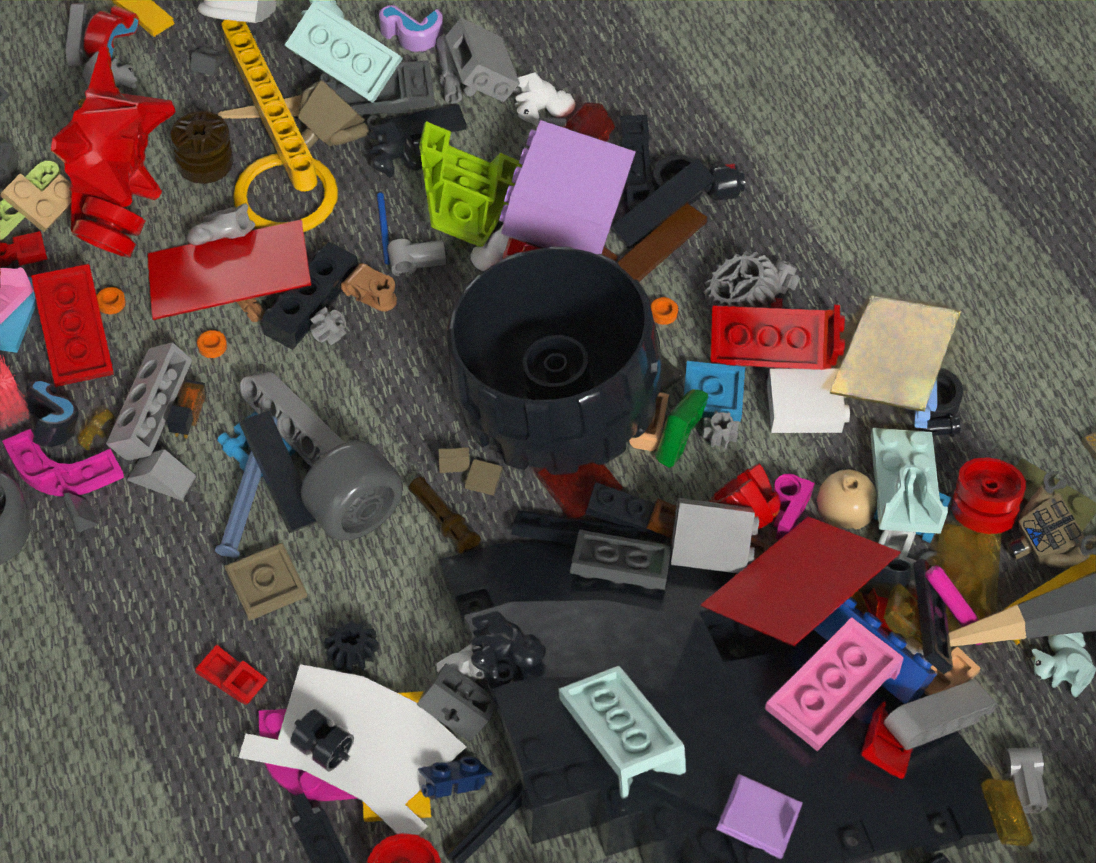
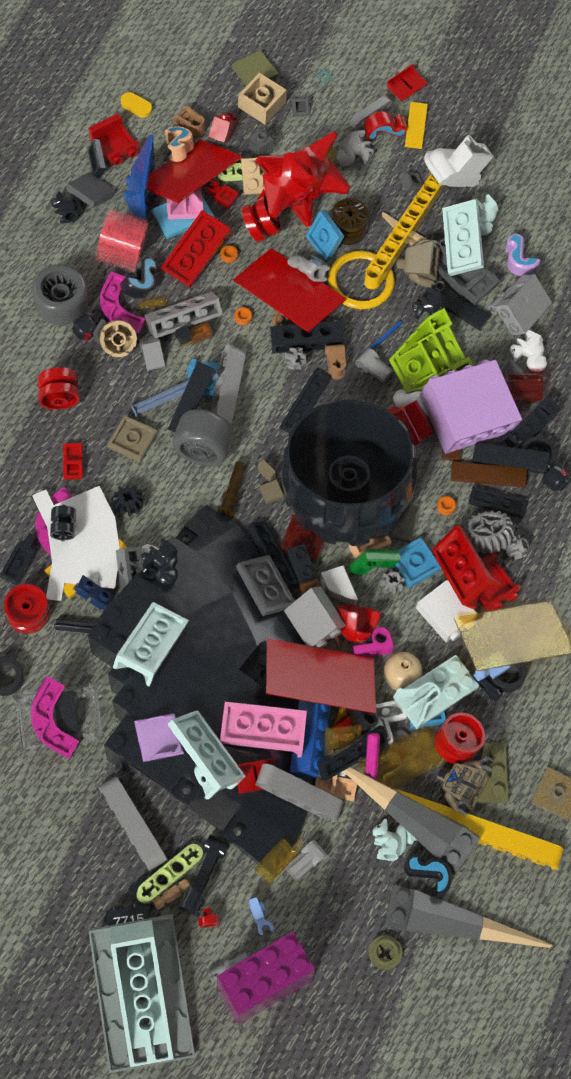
camera: 50 degrees right, 10 degrees up
(52, 524) = (85, 326): none -> black head
(110, 495) = (120, 345): none -> tan cylinder
(114, 613) = (58, 388): none -> red wheel
(196, 182) = (324, 235): none -> dark azure plate
(395, 360) = (306, 400): none -> black tile
(677, 482) = (338, 586): none -> white slope
(702, 259) = (498, 502): none -> black tile
(848, 770) = (207, 752): none -> light aqua plate

